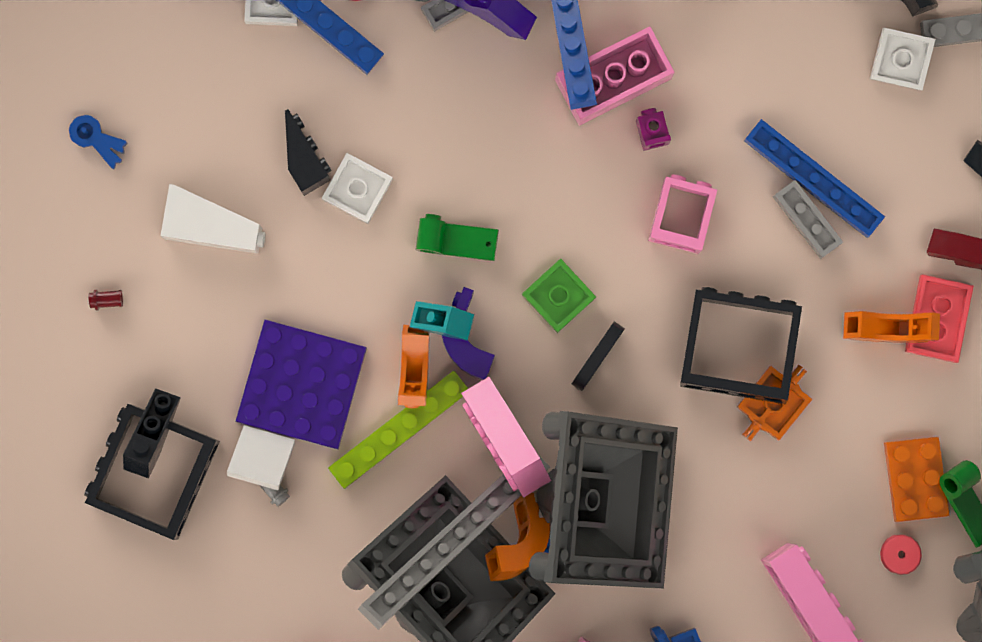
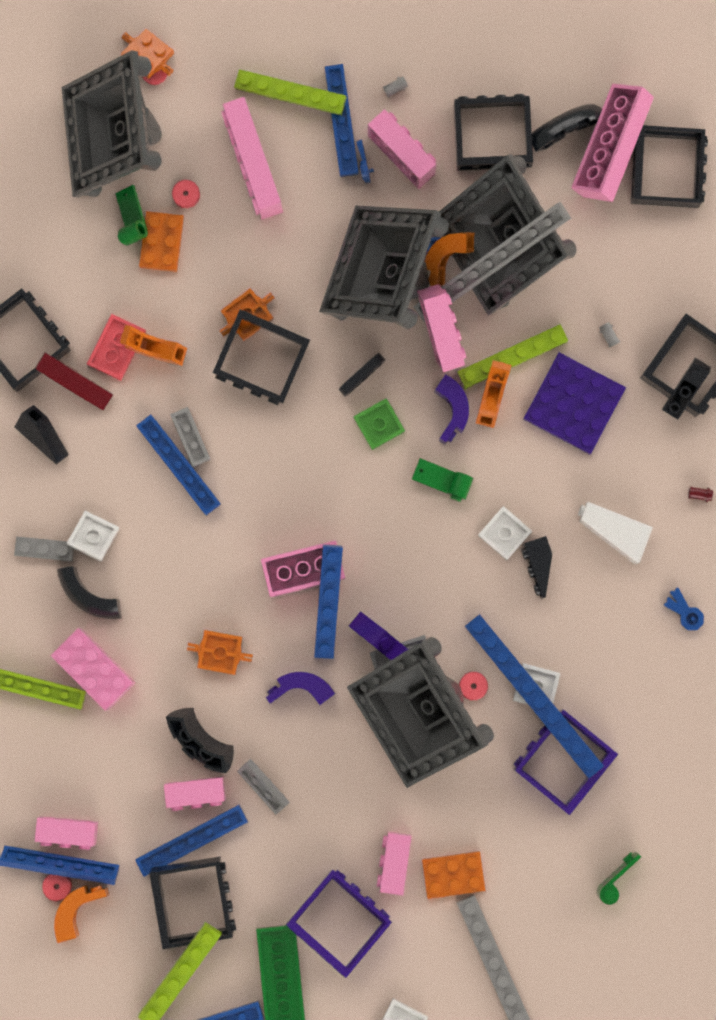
camera: 160 degrees left, 0 degrees up
(261, 457) = (613, 357): white tile -> none
(442, 320) = (467, 419): teal slope -> none
(652, 138) = (288, 518): magenta brick -> none
(678, 240) = (286, 442): bright pink window -> none

